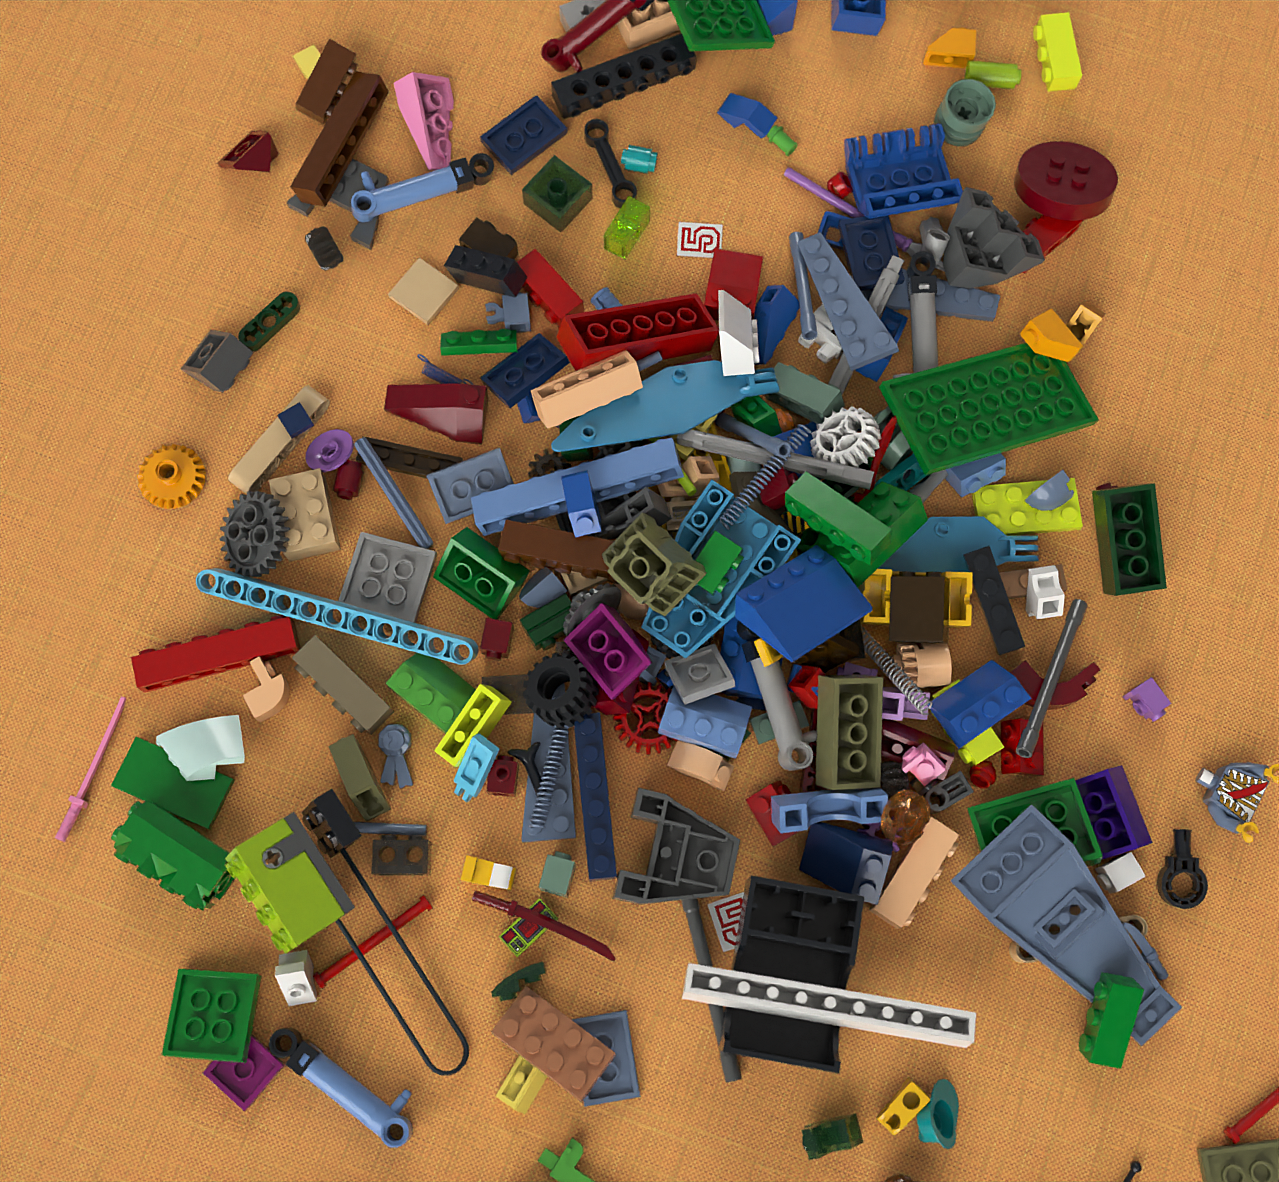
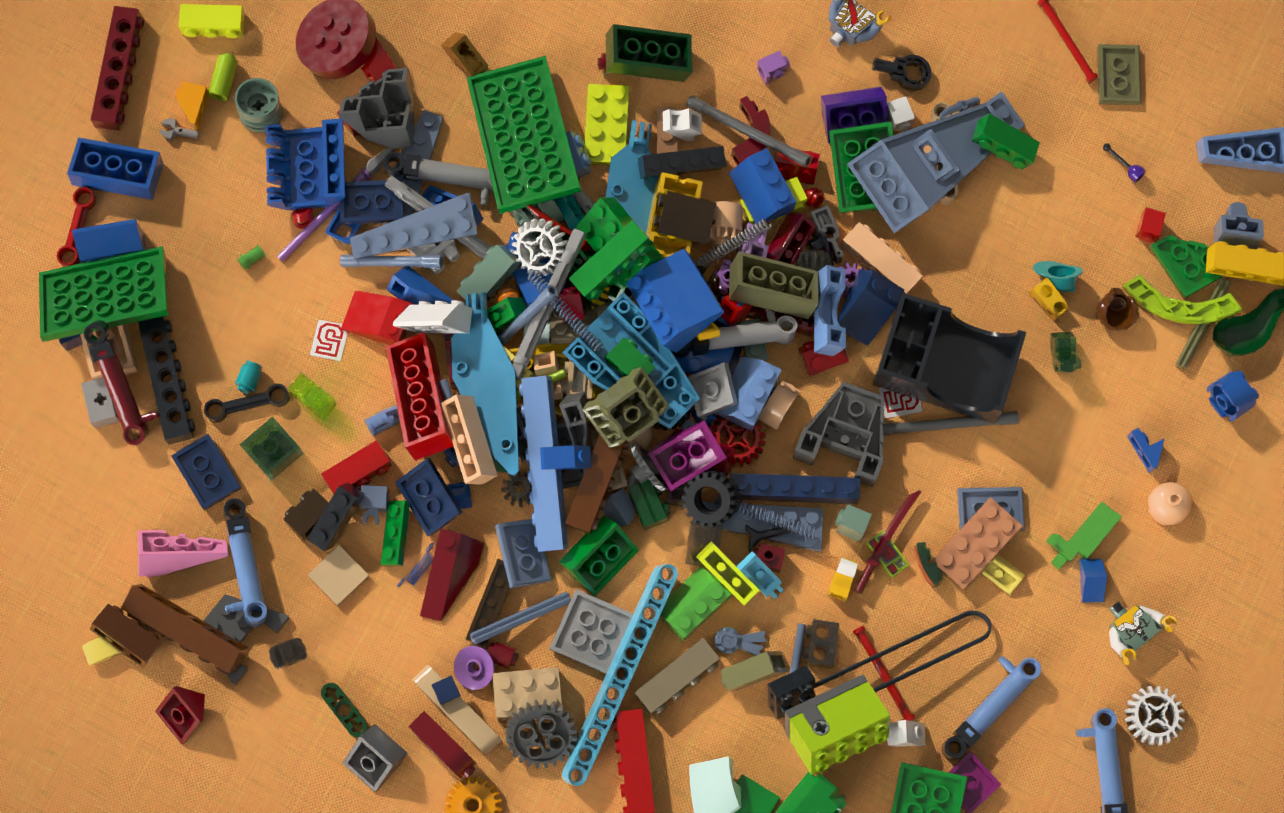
camera: 80 degrees left, 0 degrees up
(232, 426) = (443, 745): none -> dark red window
(271, 695) = (678, 736): light nougat brick -> none
(496, 639) = (656, 549): dark red brick -> none
(752, 113) = (221, 282): blue slope -> none
(829, 1005) = (975, 335): white brick -> none
(905, 816) = (838, 252): clear orange piece -> none
(918, 41) = (169, 135): none -> light grey bar
(922, 764) = (804, 237): bright pink bracket -> none
(933, 238) = (368, 150): light grey piece -> none
(1051, 337) = (471, 76): light orange slope -> none
(1051, 493) = (601, 103): sand blue brick -> none

